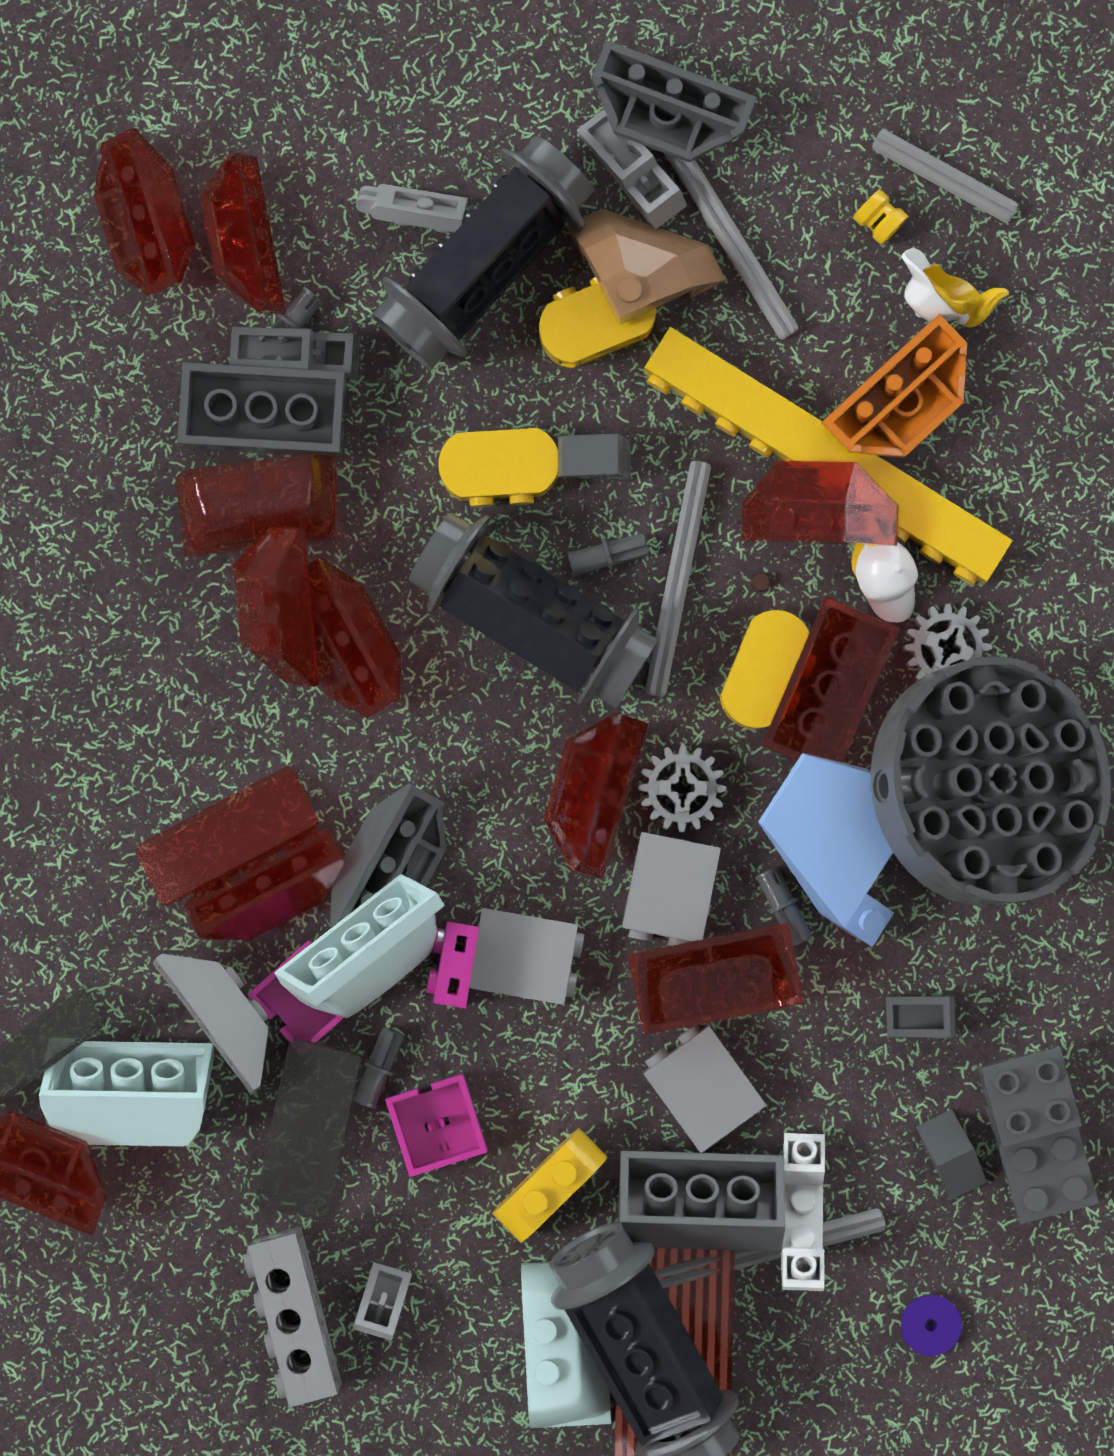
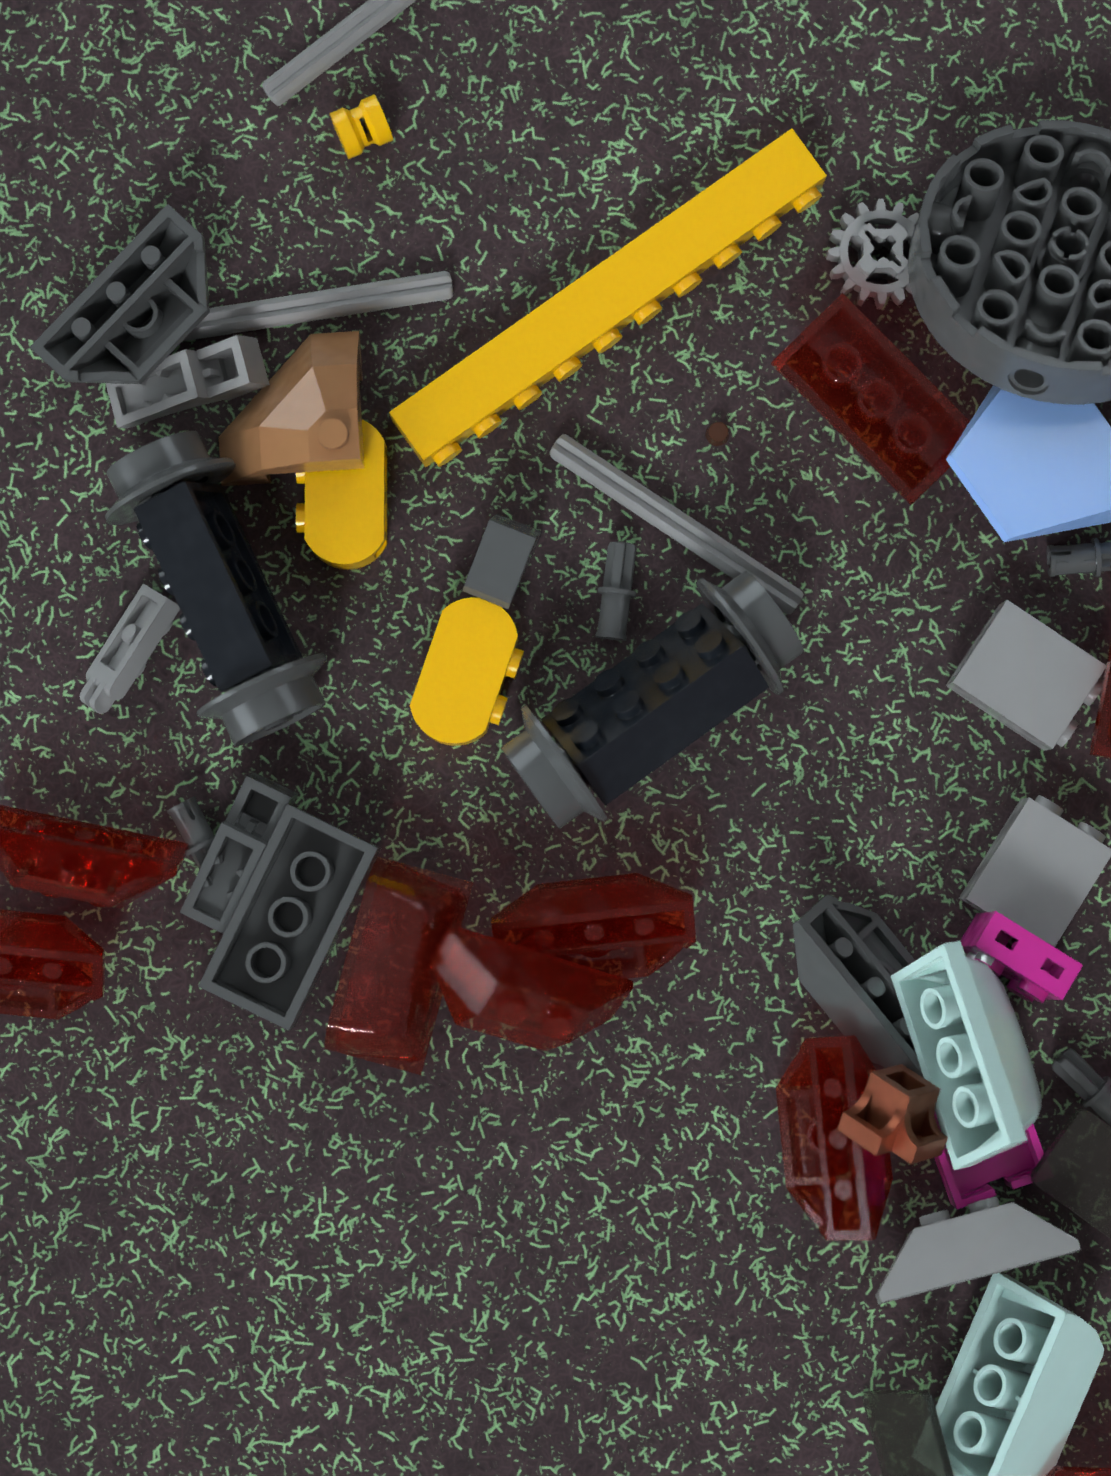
camera: 70 degrees left, 0 degrees up
(227, 836) = (762, 1157): clear red piece -> none
(296, 914) = (896, 1116): none -> copper brick
(593, 791) = (886, 716): clear red wedge -> none
(700, 788) = (895, 607): light grey gear -> none
(763, 668) = (820, 469): yellow brick -> none
(819, 506) = (665, 328): clear red wedge -> none
(886, 579) = (762, 288): white hair -> none
(905, 395) = (577, 179): orange wedge -> none
(936, 293) = (483, 91): hair -> none

